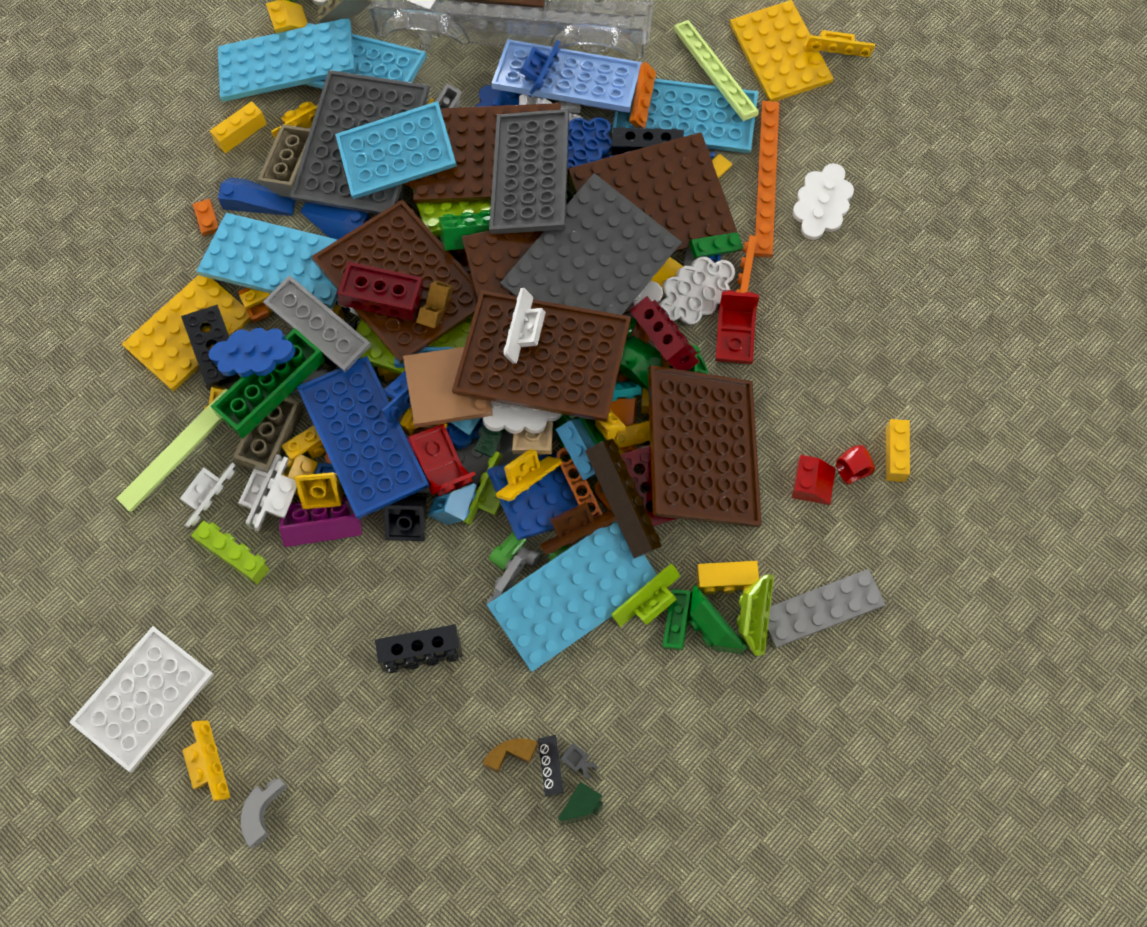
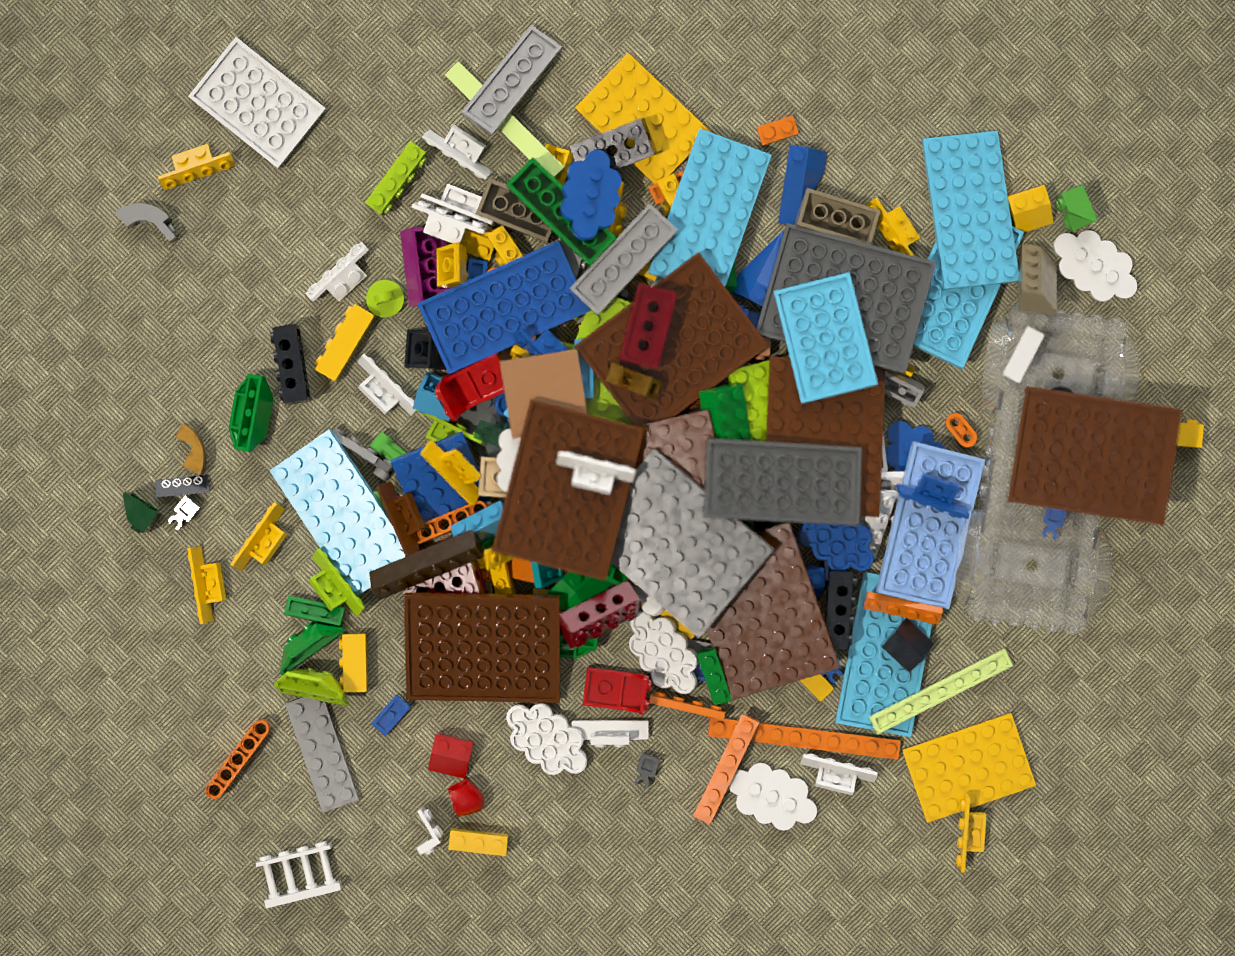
camera: 85 degrees right, 20 degrees up
(138, 443) = (511, 80): none -> light grey plate
(238, 127) = (886, 160): yellow brick -> none
(329, 604) = (342, 277): none -> white bracket
(353, 561) = (385, 298): none -> lime tile
(398, 598) = (345, 342): none -> yellow brick
(445, 558) = (381, 389): none -> white bracket
(470, 692) = (250, 413): none -> green wedge
(479, 65) = (961, 429): none -> orange plate
(606, 673) = (263, 540): none -> yellow bracket
(654, 731) = (207, 584): none -> yellow bracket
(678, 93) = (907, 645): none -> black slope
(777, 337) = (612, 731): none -> white bracket
(778, 540) = (390, 715): none -> blue plate
(788, 393) = (547, 738): none -> white plate
(798, 148) = (836, 775): none -> white bracket
(802, 235) = (726, 768): none -> orange plate
(807, 304) = (647, 767): none -> dark grey plate
(849, 693) = (231, 765): none -> orange beam
(902, 489) = (431, 844): none -> white bracket
(968, 612) = (294, 893): none -> white fence

